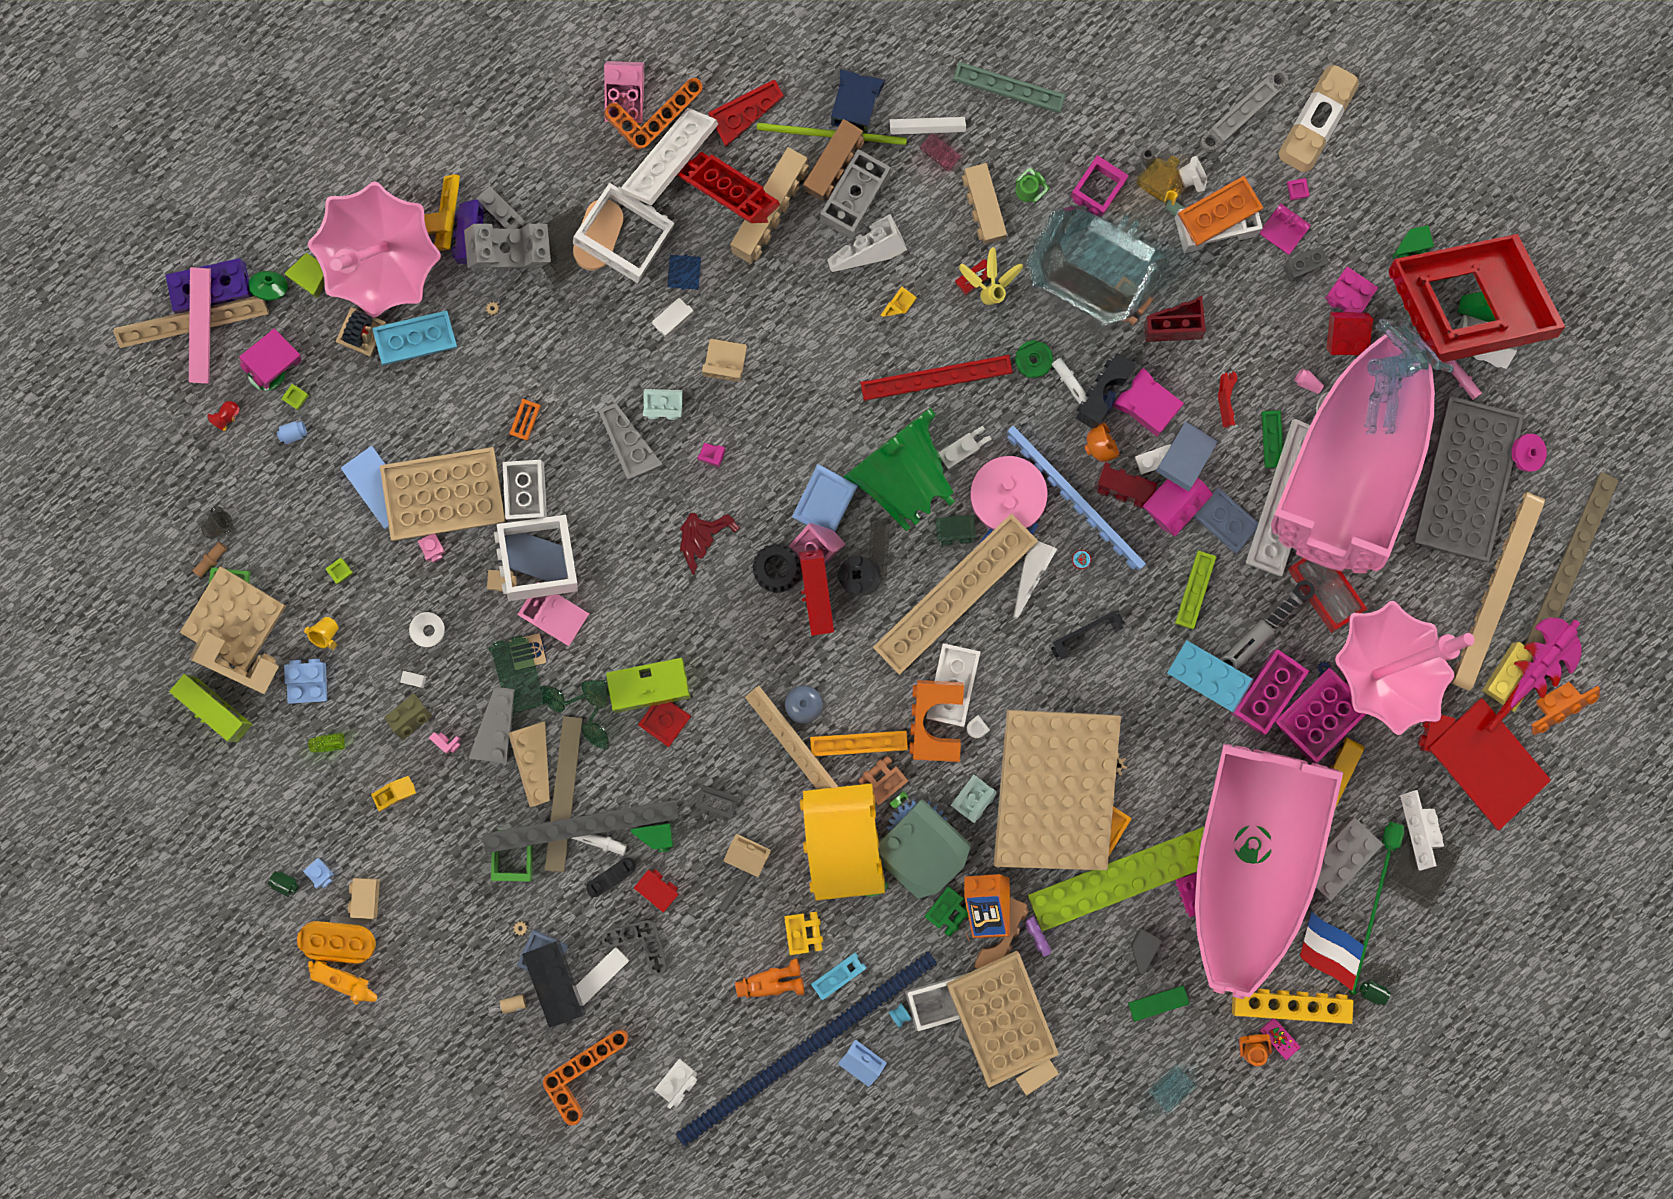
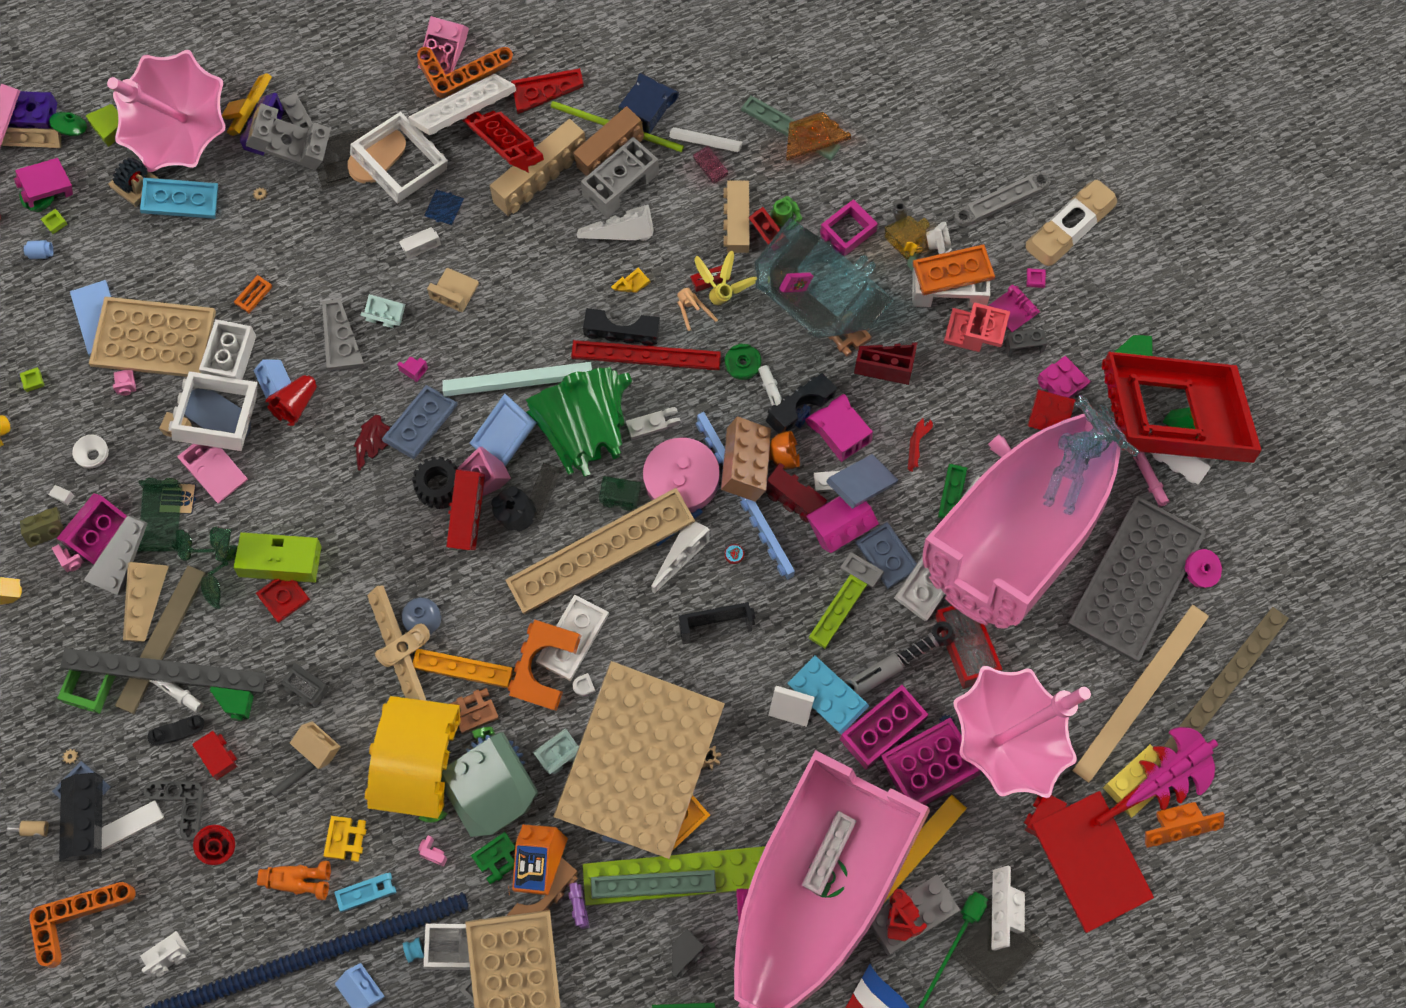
camera: 15 degrees right, 15 degrees down
(459, 705) = (92, 528): none -> dark pink slope
(577, 504) = (271, 376): none -> light blue panel
(606, 521) = (292, 399): none -> red cone
(688, 974) = (214, 844): none -> red cone
(738, 510) = (419, 422): none -> sand blue tile
(807, 730) = (414, 639): none -> tan piece
(818, 438) = (511, 379): none -> light aqua tile
(881, 360) = (643, 330): none -> black arch
(891, 924) = (434, 855): none -> bright pink bracket
(962, 306) = (688, 299): none -> light nougat plant
(1019, 210) = (764, 224): none -> red brick
(1035, 92) = (813, 134): none -> clear orange wing
(1066, 264) = (796, 282): none -> dark pink tile
(1069, 465) = (746, 459): none -> medium nougat brick
(1099, 897) = (653, 884): none -> sand green tile
(1179, 696) = (791, 706): none -> white tile
(1207, 543) = (862, 570): none -> light grey plate
(1250, 824) = (829, 853): none -> white tile
(1255, 262) = (976, 327): none -> coral bracket
(1336, 871) = (902, 917): none -> red piece

